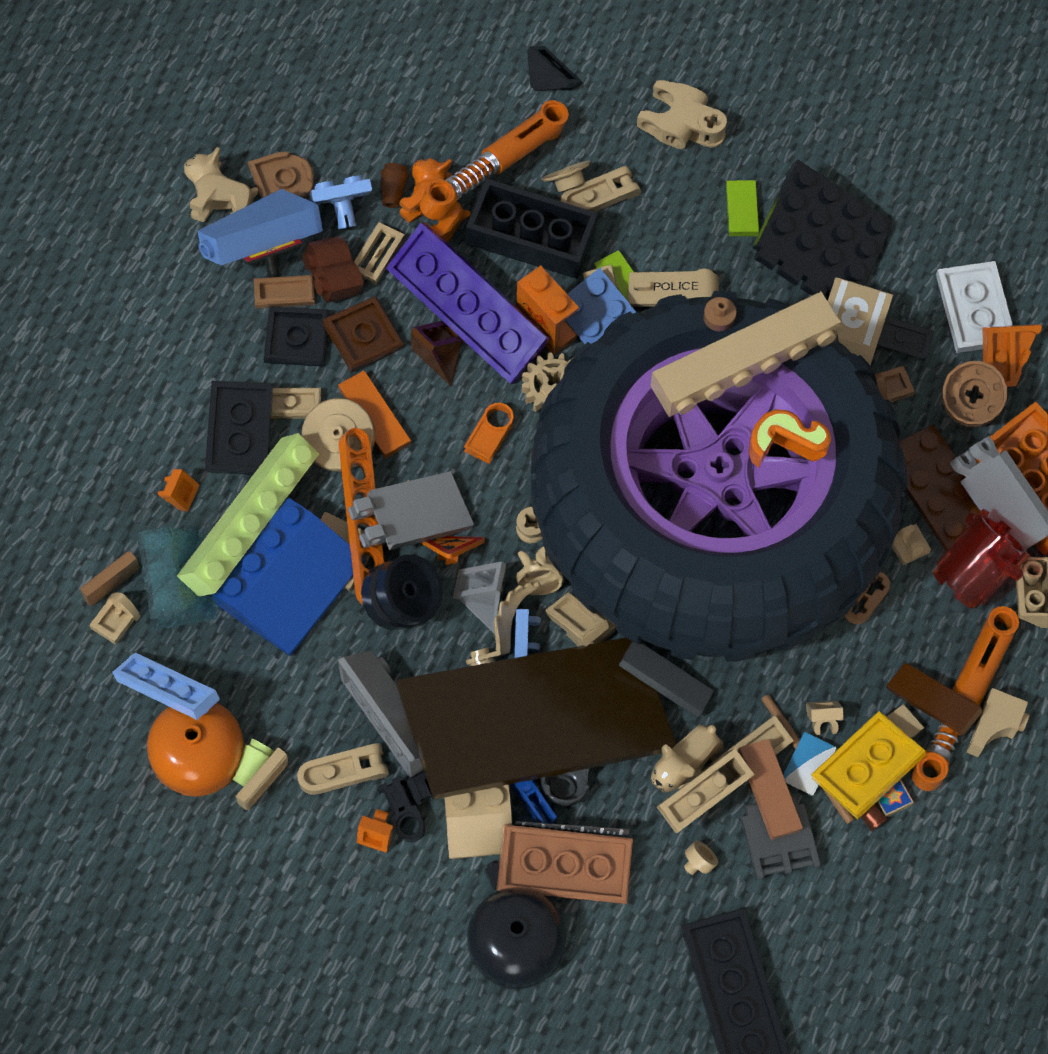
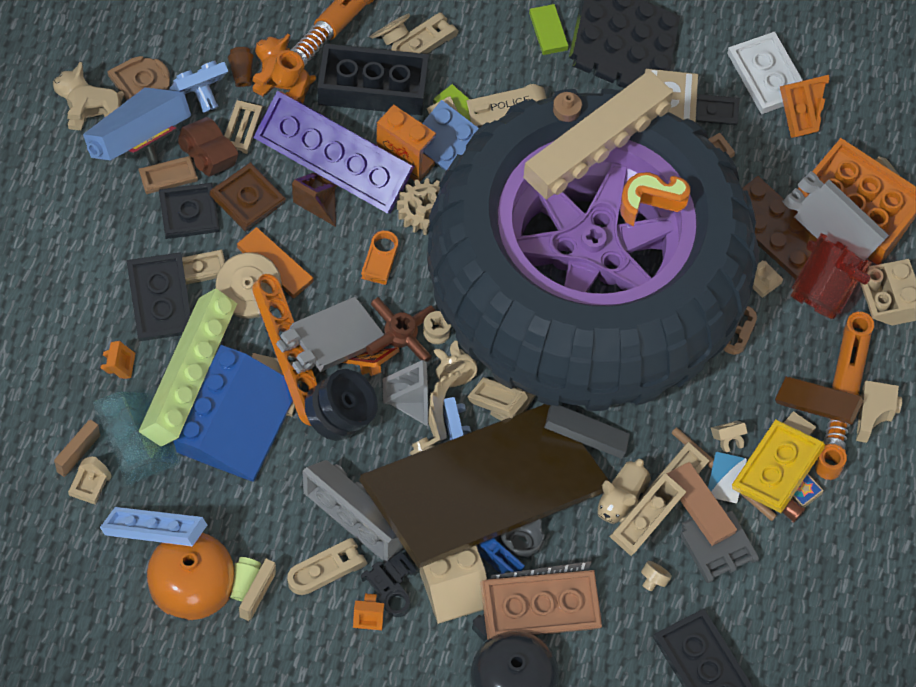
camera: 15 degrees left, 5 degrees down
(488, 528) = (400, 330): none -> copper bar
(965, 378) = (798, 132): medium nougat wheel -> none

